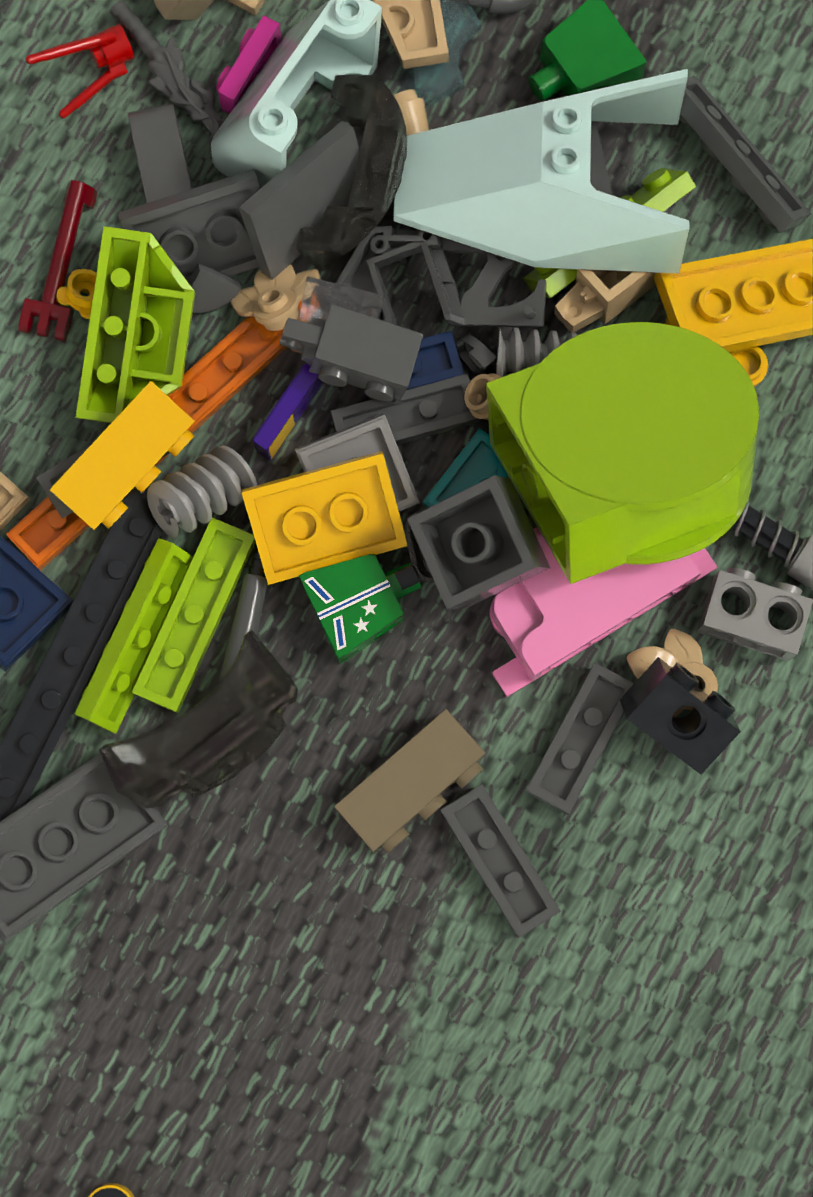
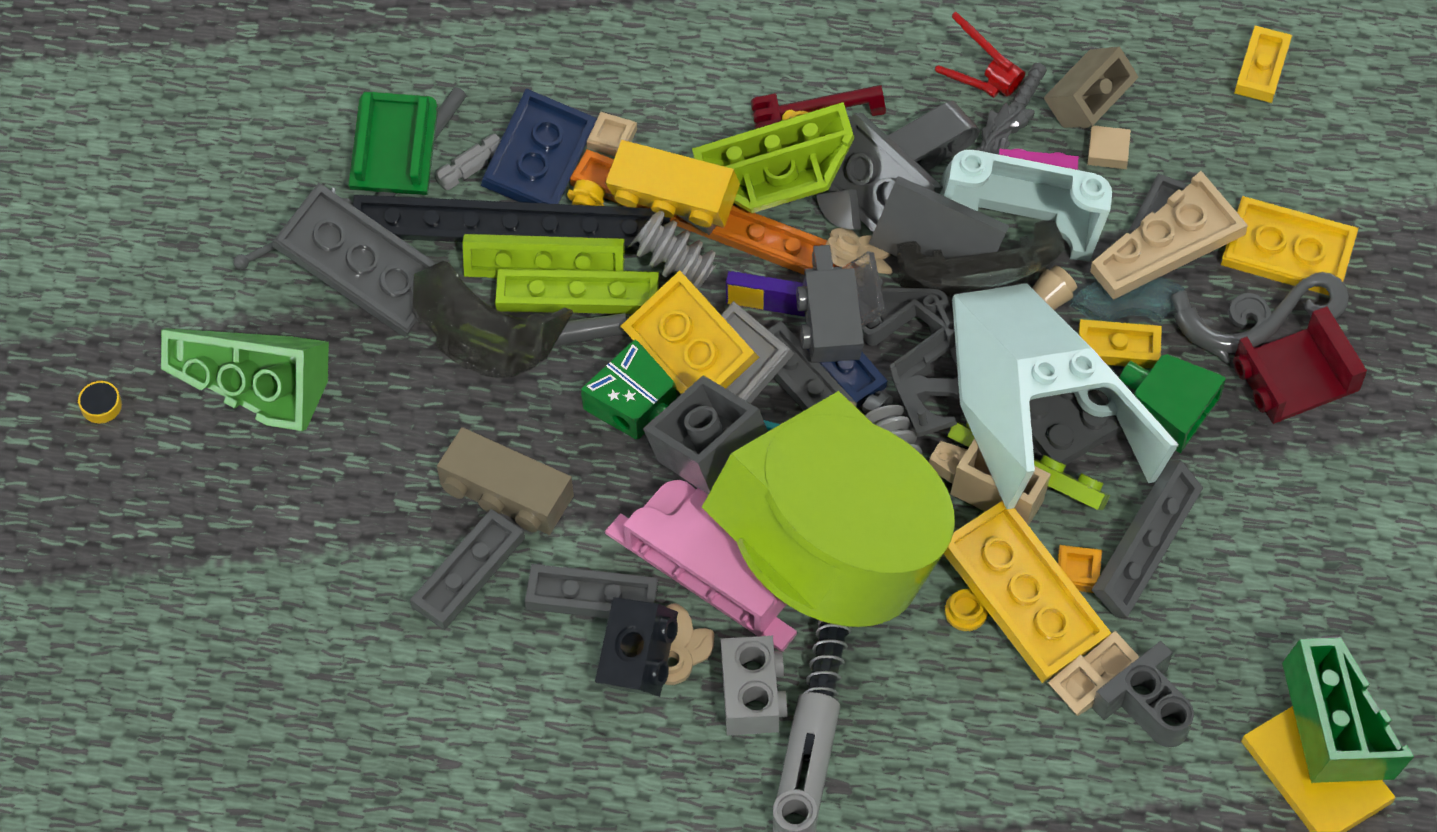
camera: 70 degrees right, 20 degrees down
(71, 558) = (586, 193): none -> yellow plate
(156, 1002) = (264, 373): none -> bright green wedge
(499, 77) = (1123, 342): none -> yellow plate
(737, 233) = (1080, 565): none -> light orange tile

